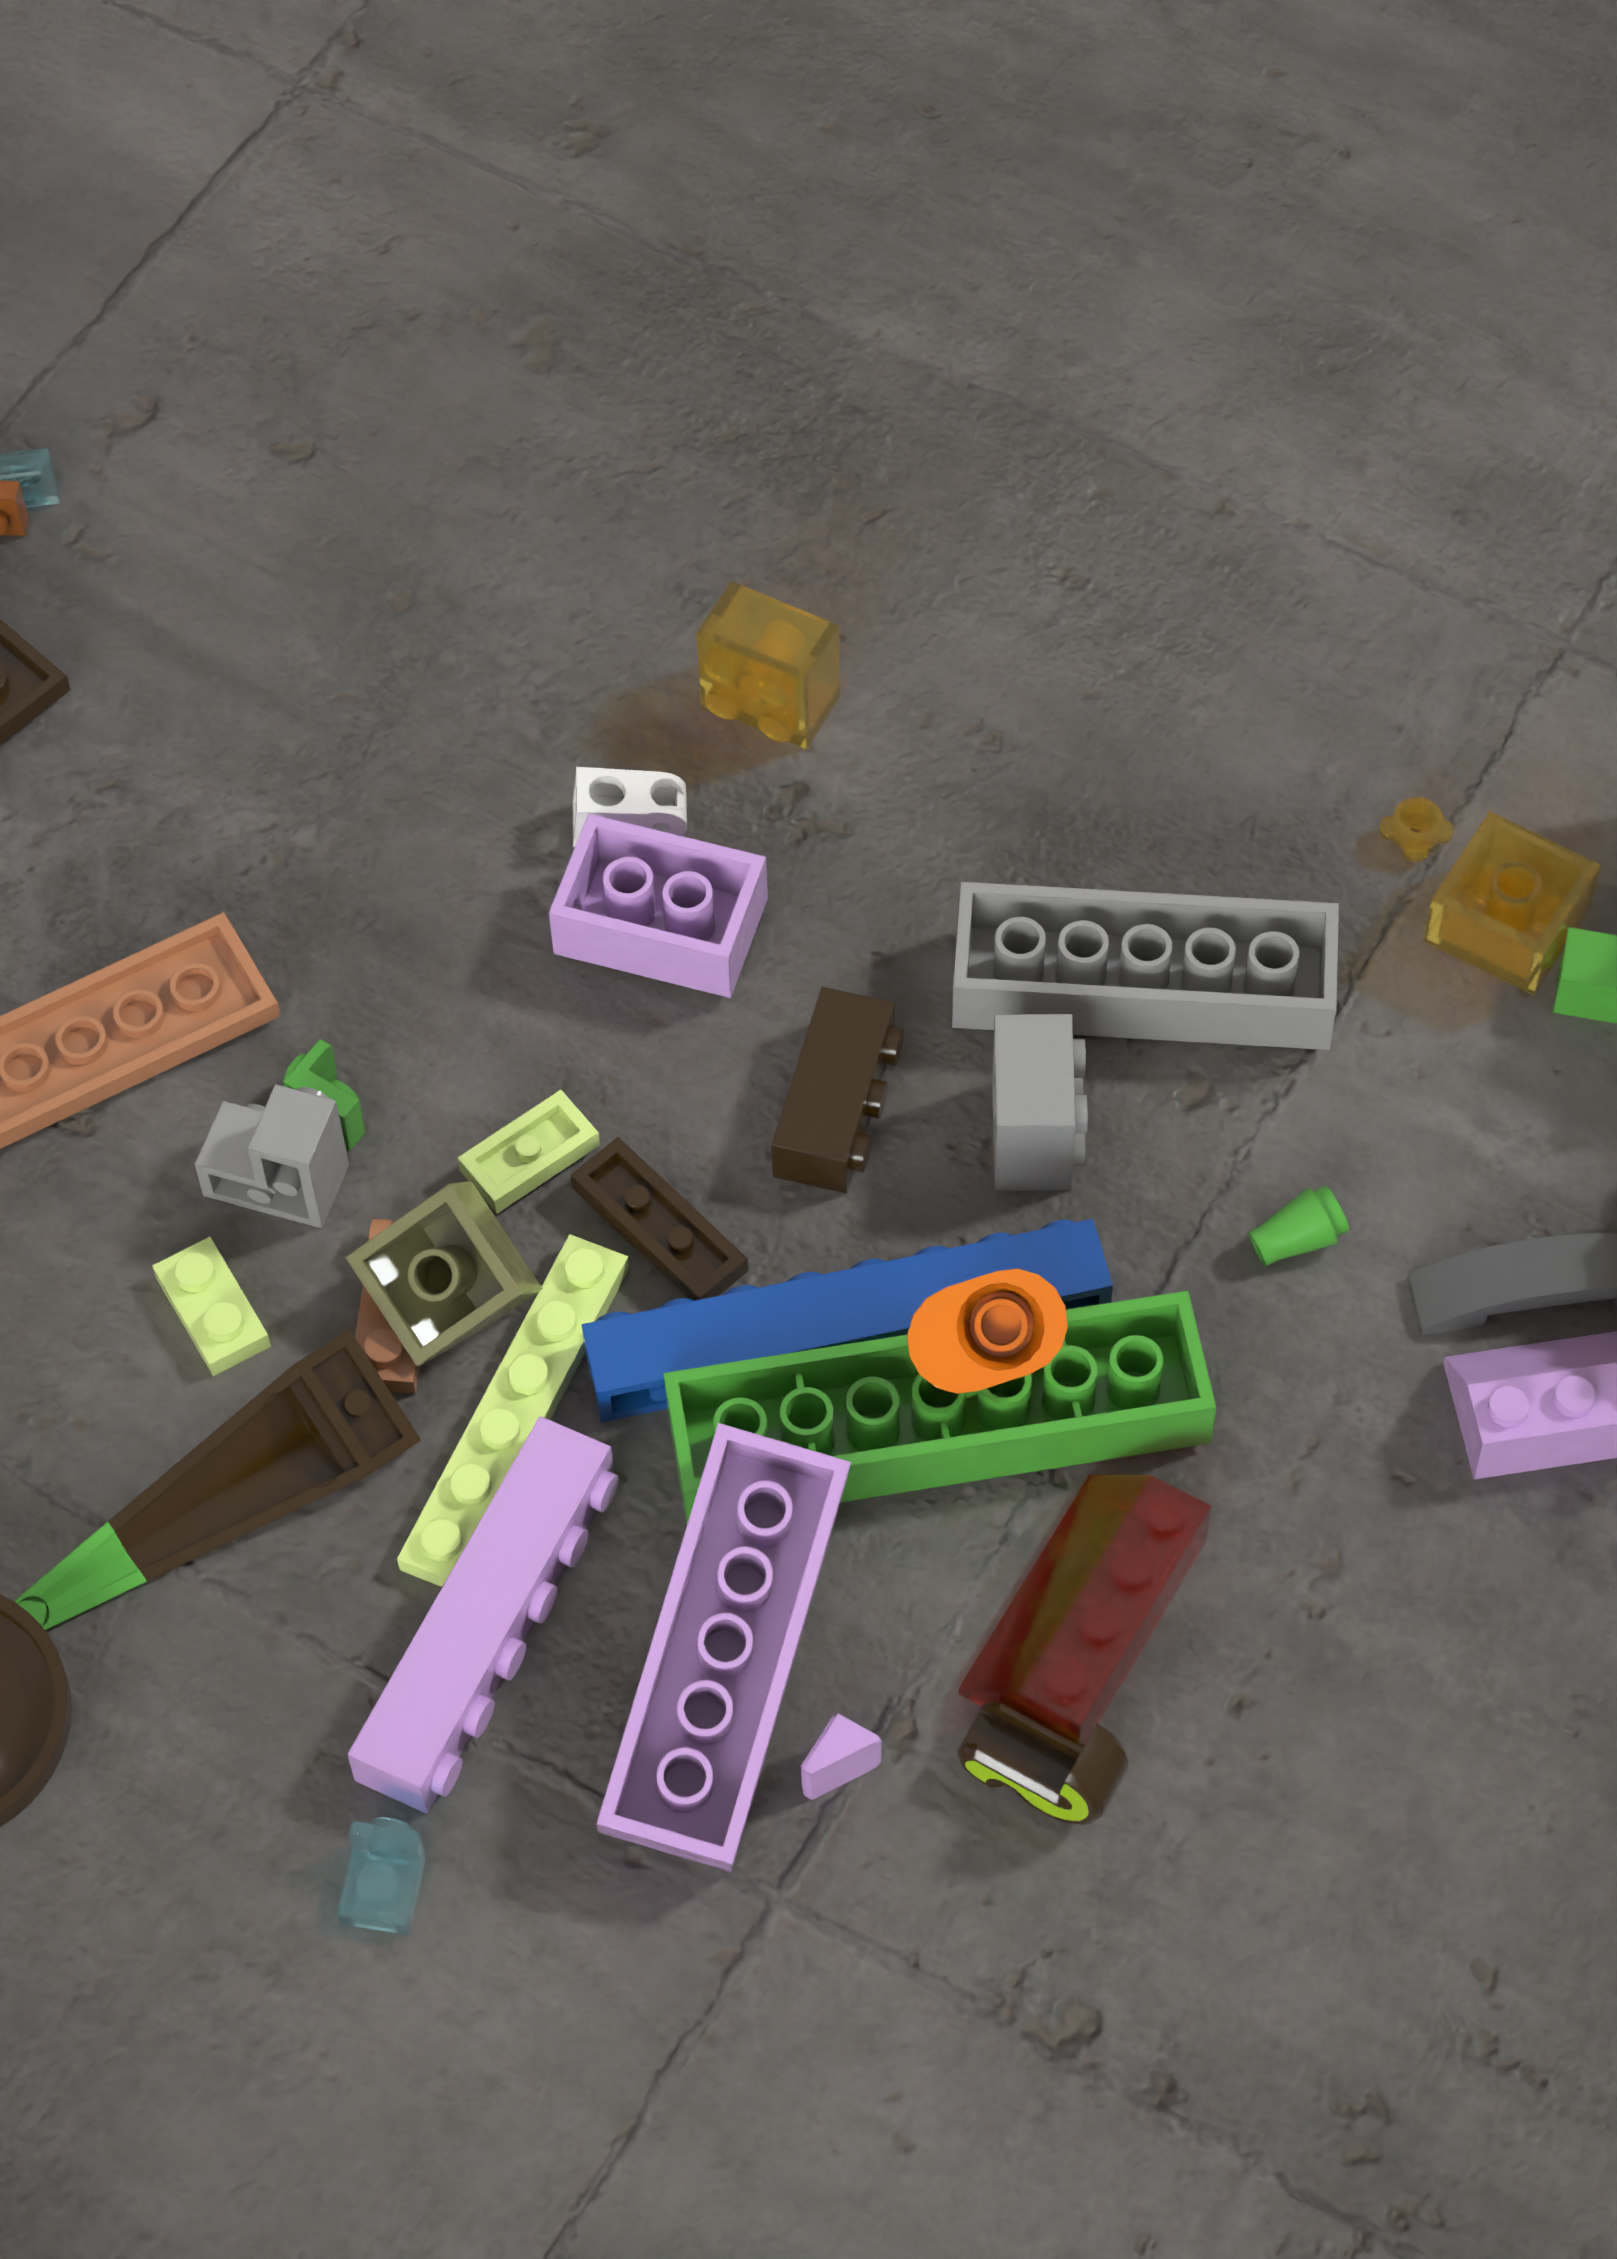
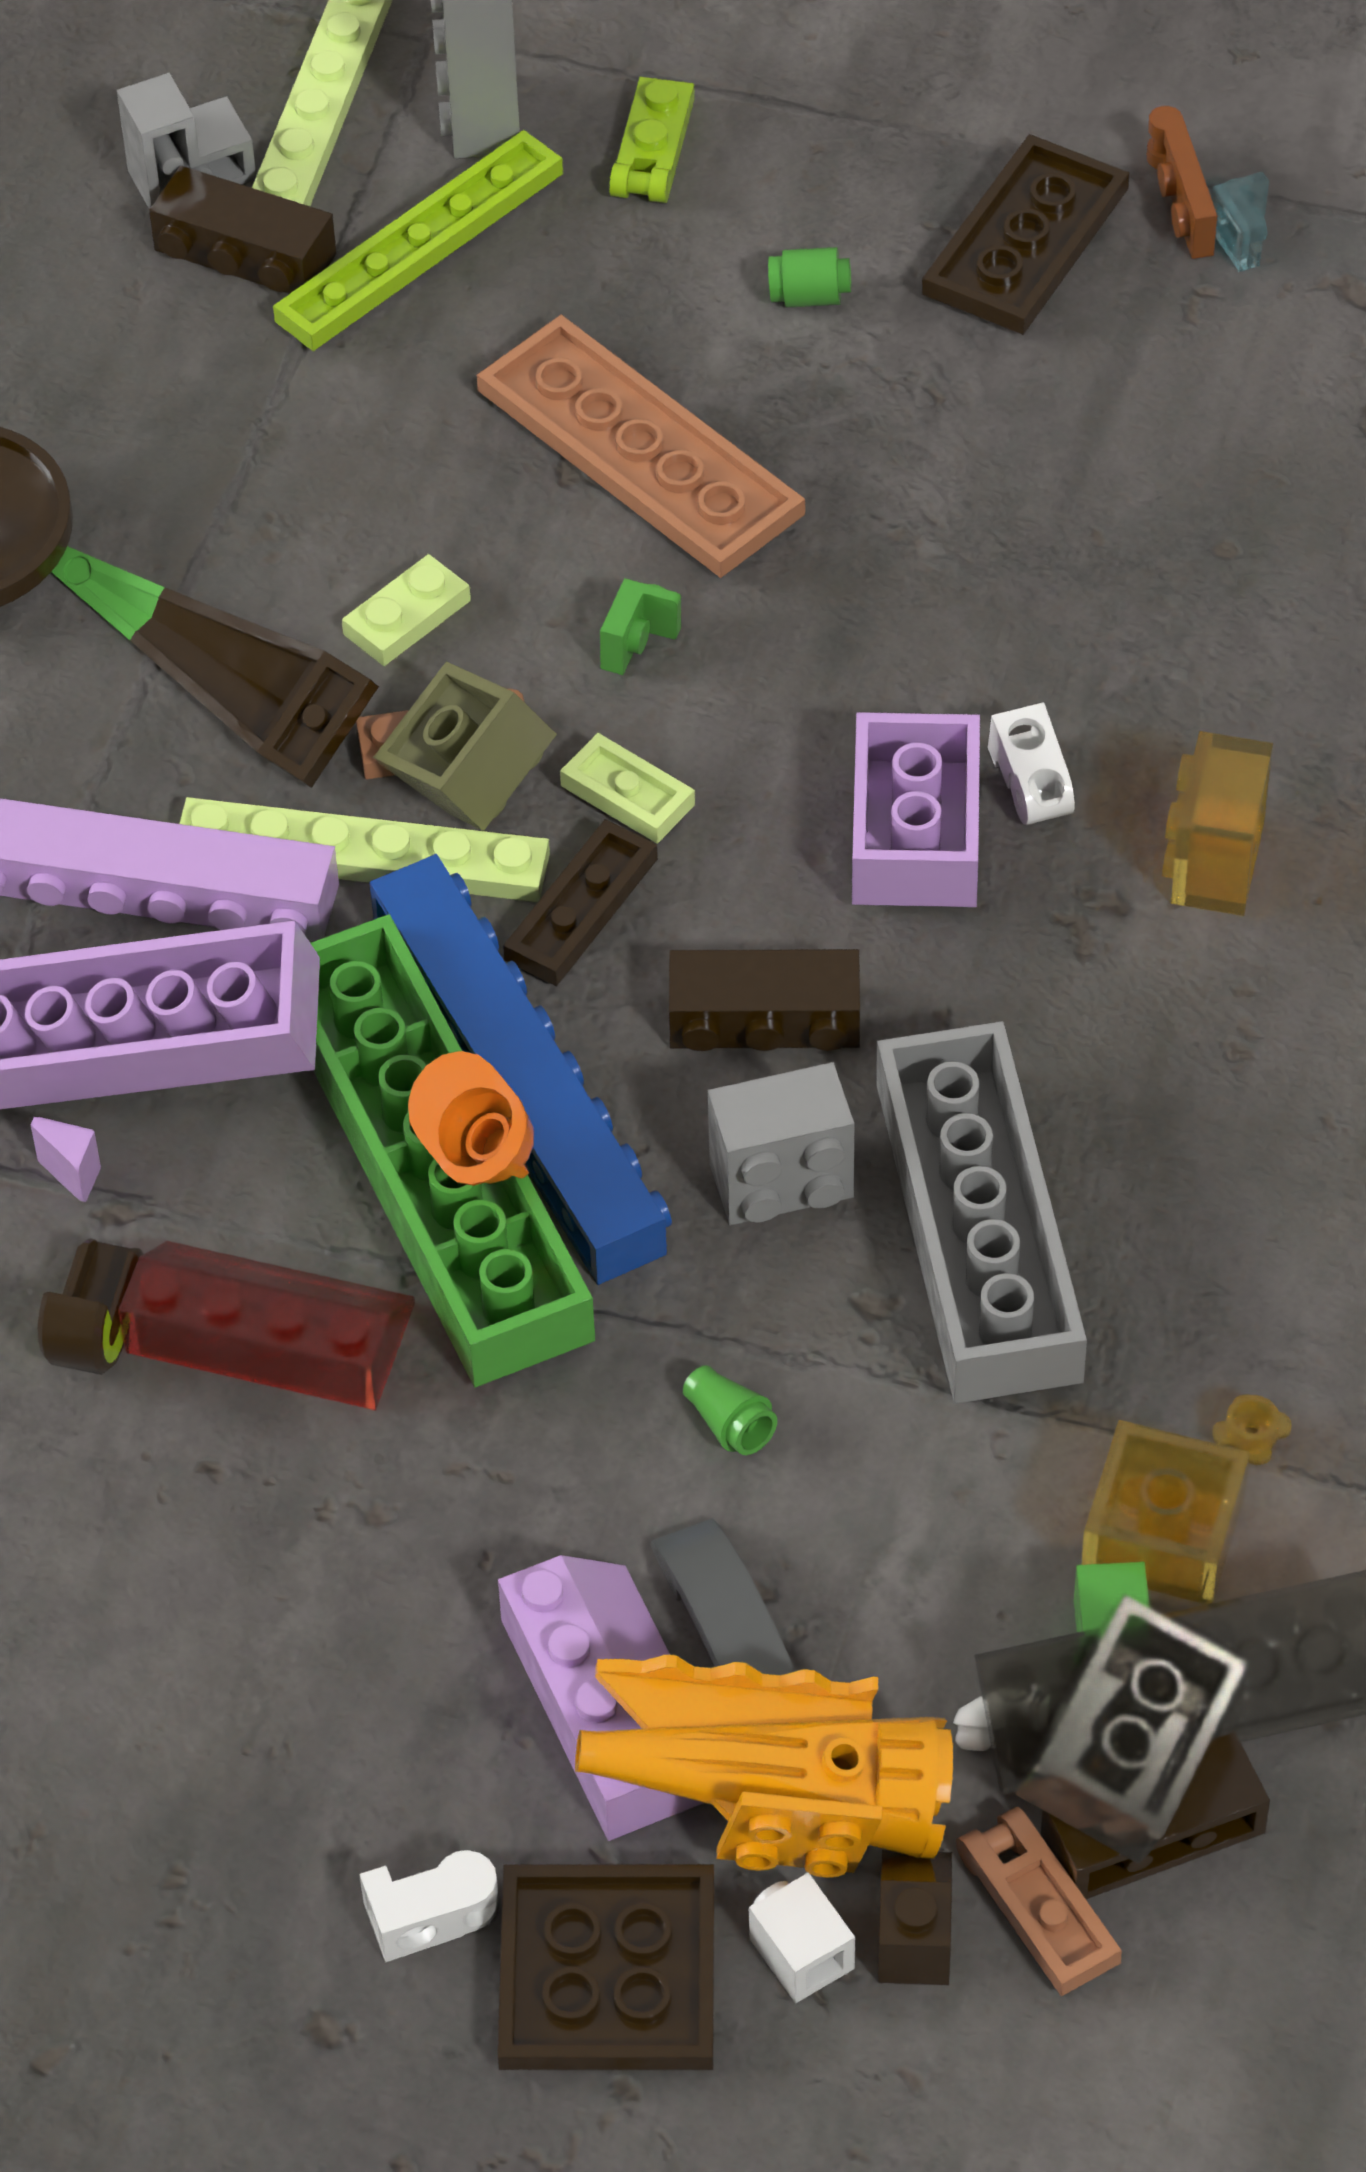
camera: 75 degrees right, 5 degrees down
(277, 1156) = (552, 605): light grey brick -> none

